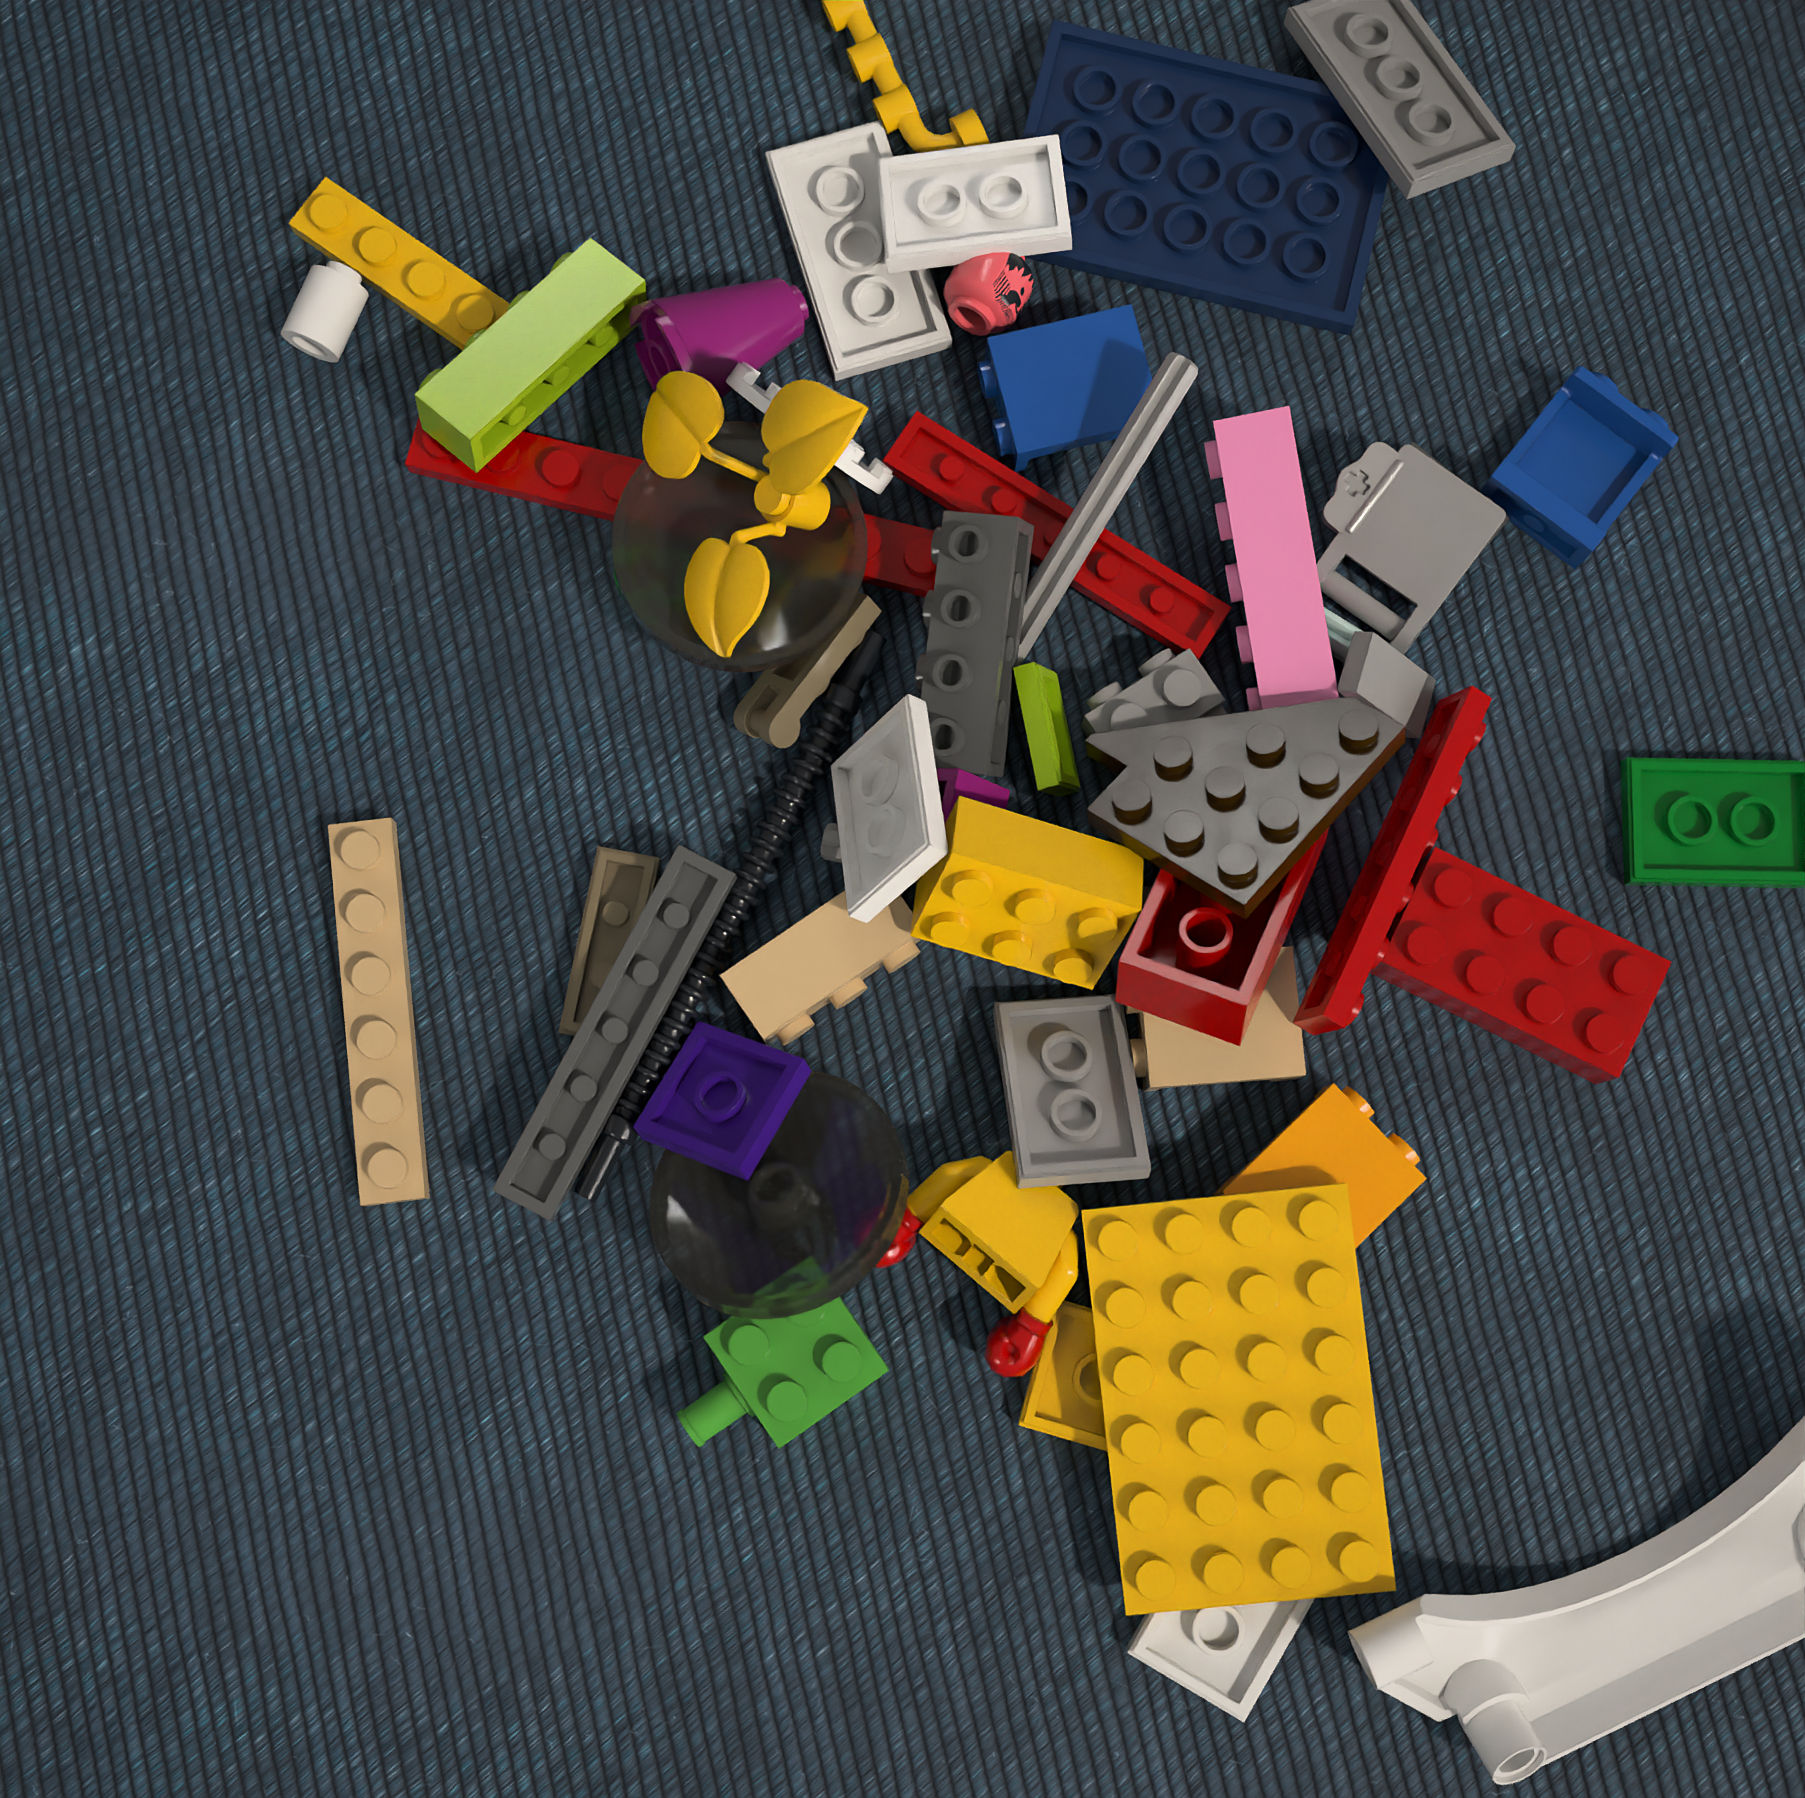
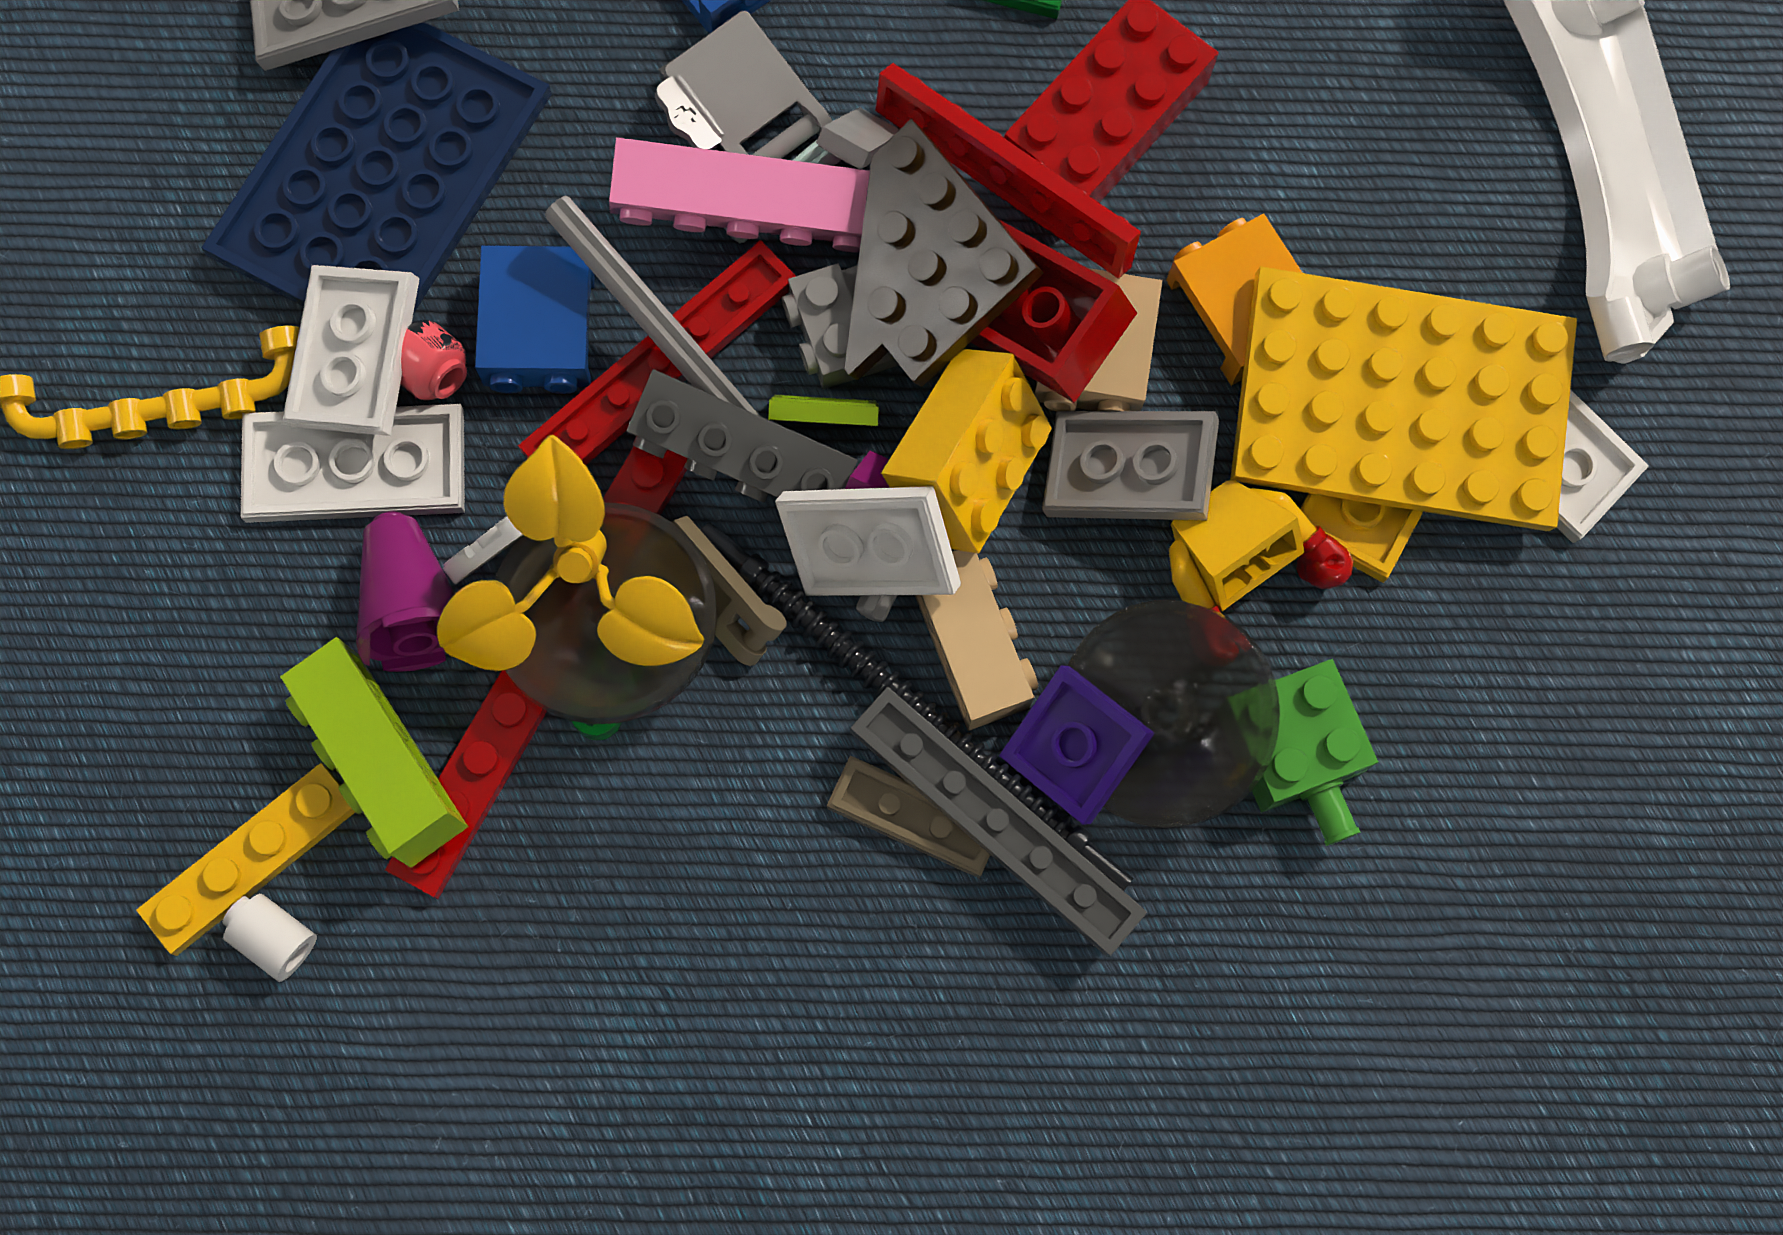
camera: 80 degrees left, 5 degrees down
(378, 1012) = (923, 1030): tan plate -> none

